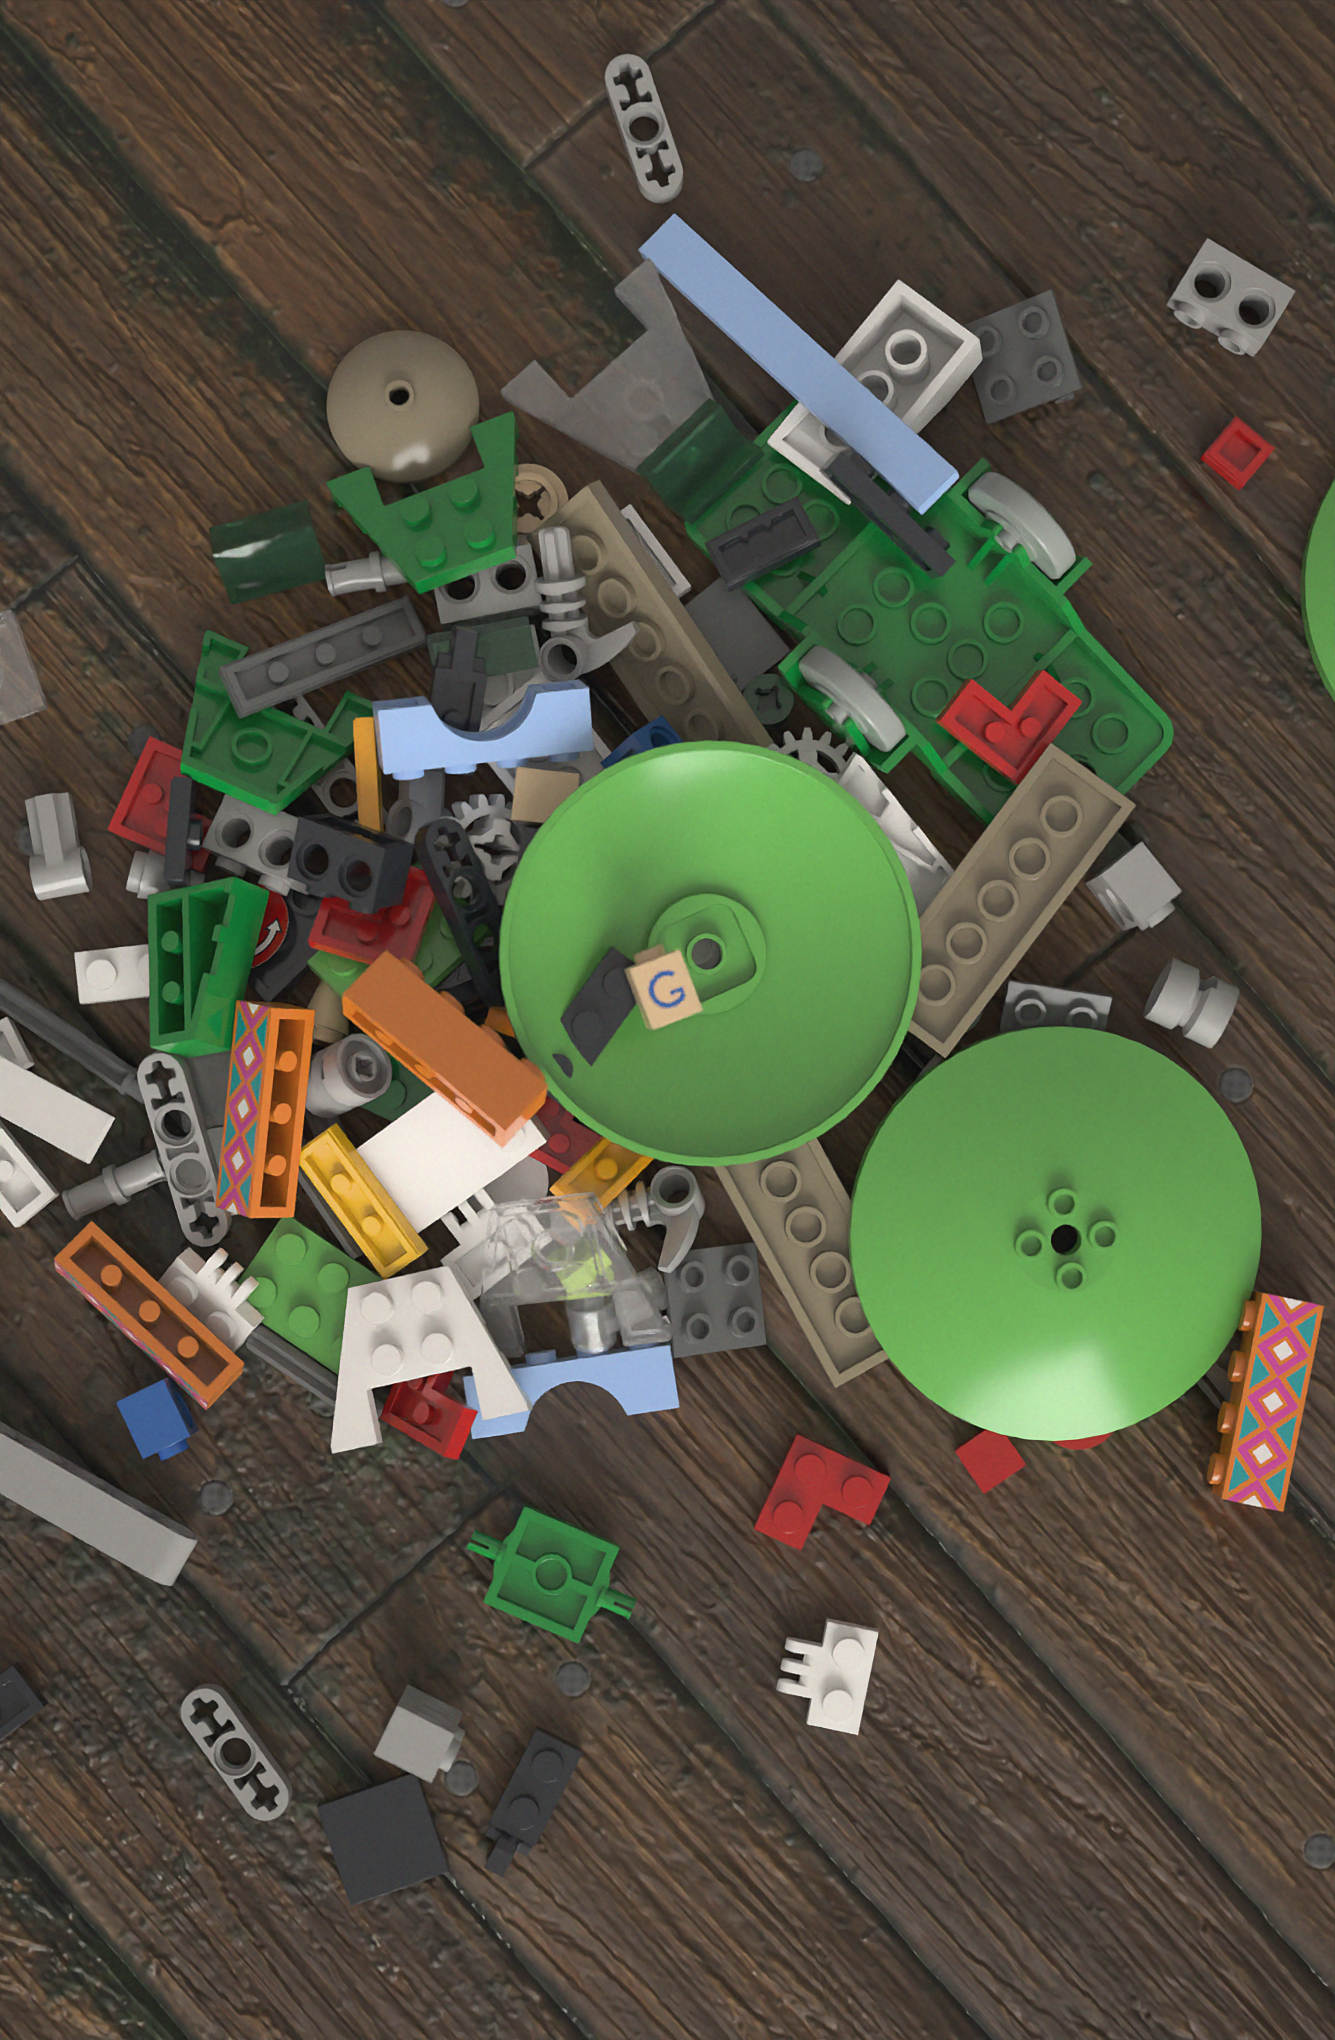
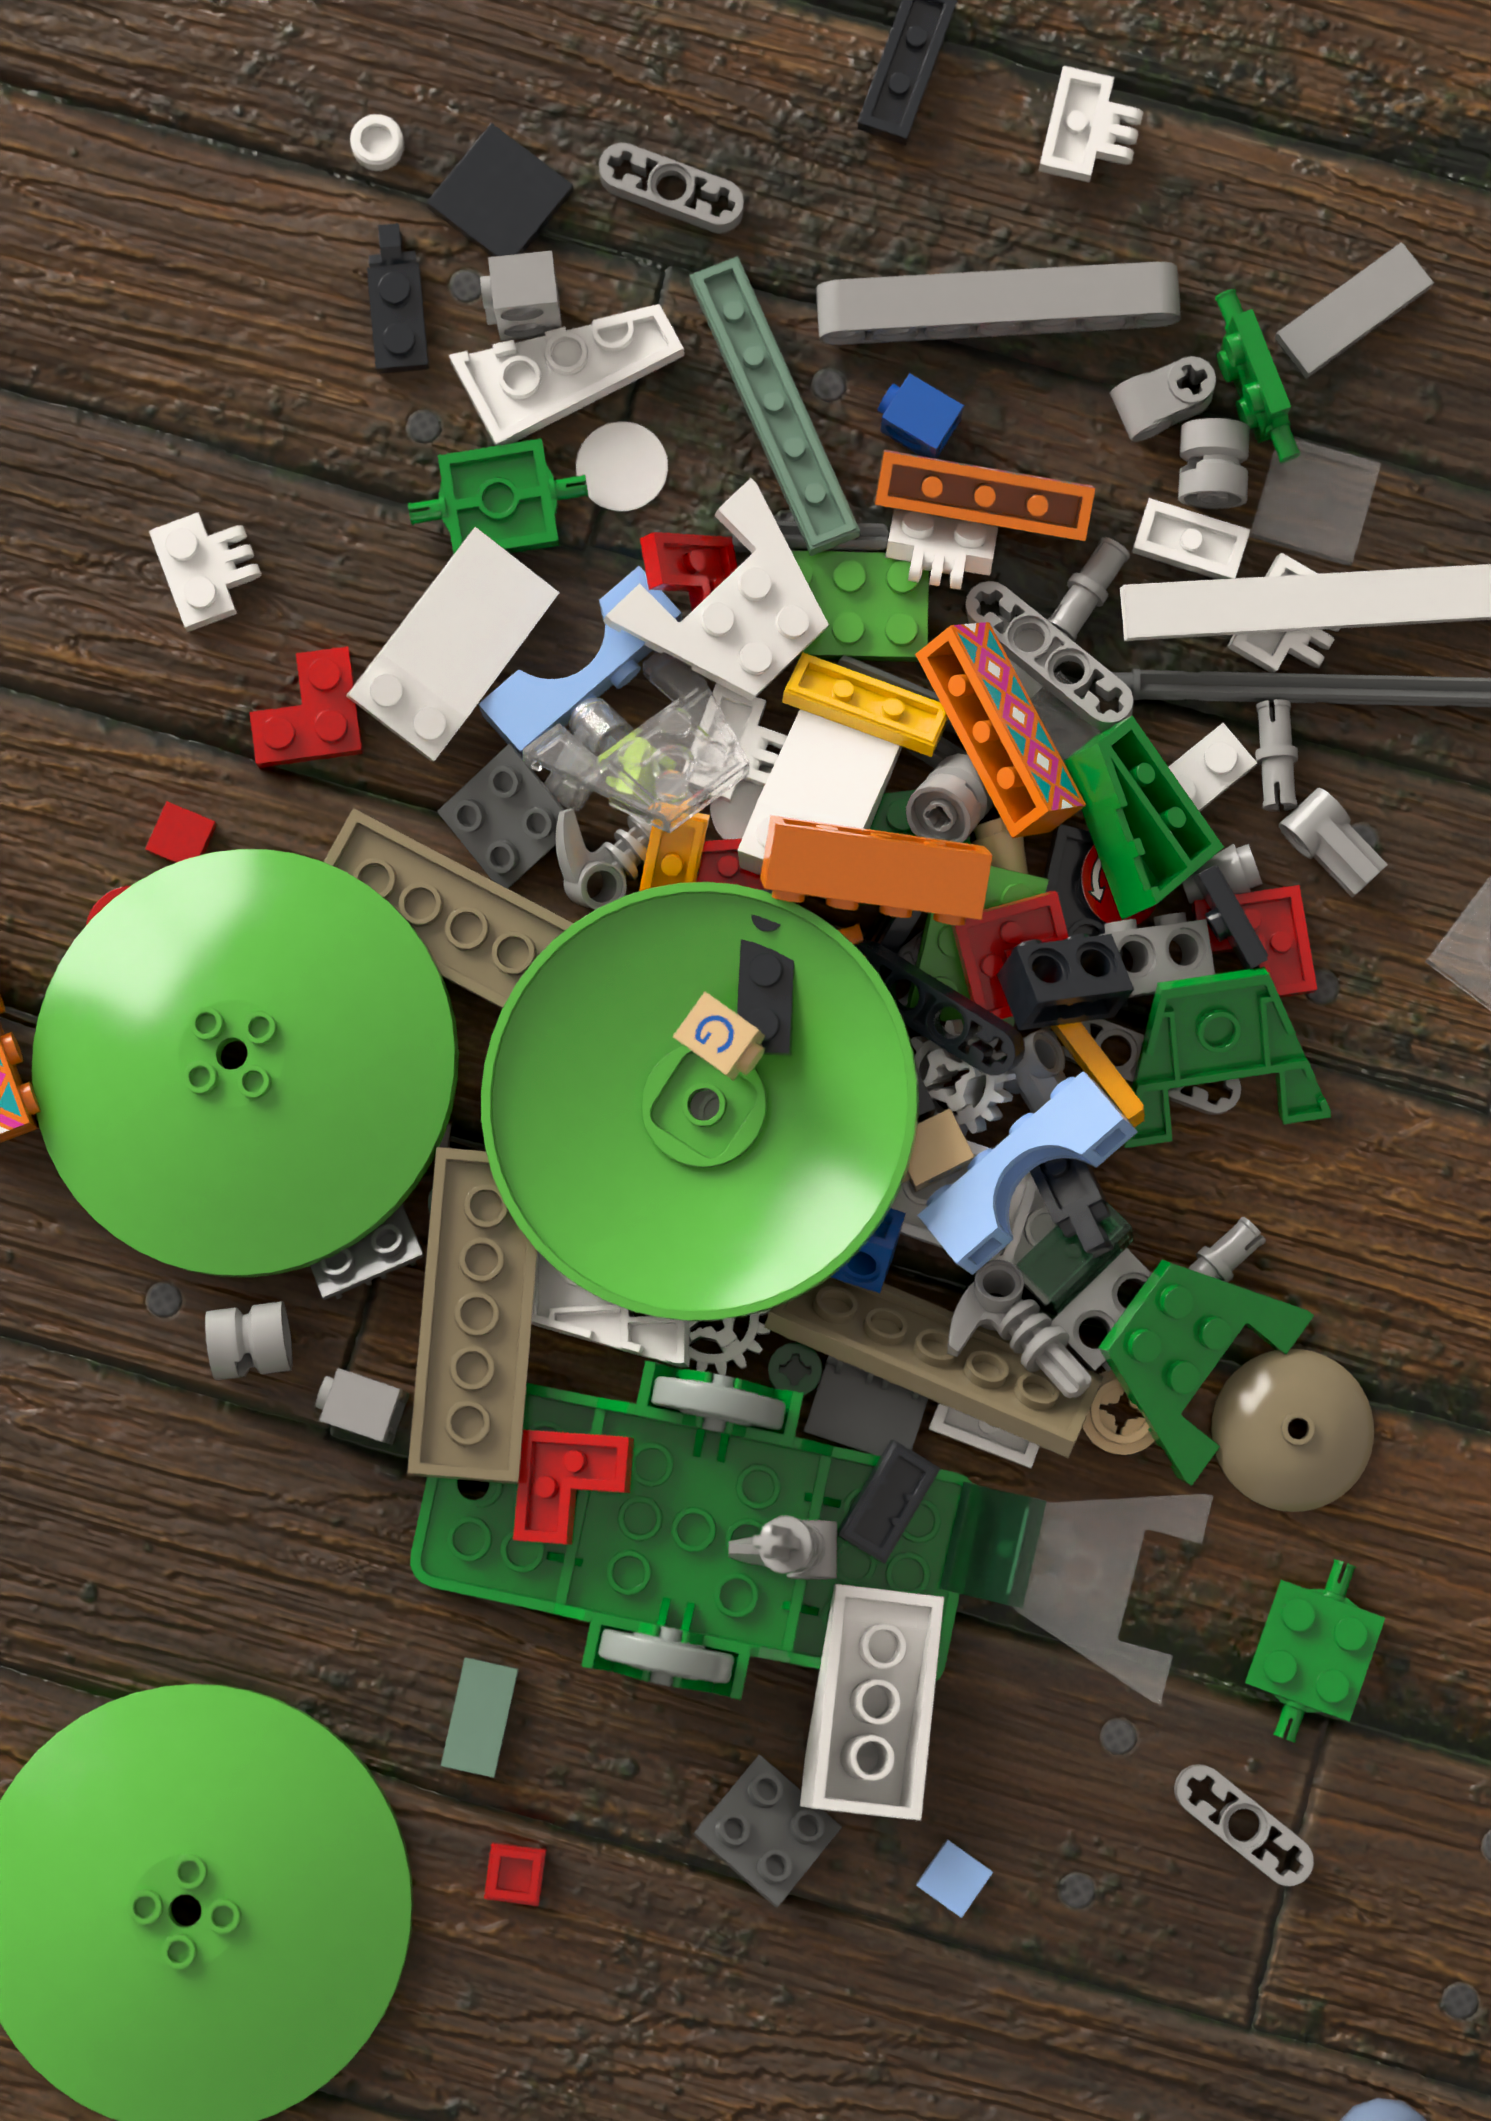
camera: 150 degrees right, 5 degrees down
(54, 948) = (1276, 755): none -> light grey pin
(267, 552) = (1324, 1220): clear green panel -> none
(272, 1506) = (774, 406): none -> sand green tile
(322, 656) = (1211, 1155): dark grey tile -> none
(430, 1538) = (622, 466): none -> white sticker
(430, 1650) = (551, 376): none -> white wing
(457, 1952) = (377, 142): none -> white tile
(499, 224) = (1315, 1650): none -> green plate
(668, 1471) = (453, 645): none -> white slope
(799, 364) = (961, 1684): light blue tile -> none
(867, 548) = (792, 1547): none -> light grey piece
(889, 513) = (791, 1594): black plate -> none
(896, 231) = (954, 1878): none -> light blue tile
(1189, 591) = (479, 1717): none -> sand green tile
(1236, 286) = (611, 2025): light grey brick -> none

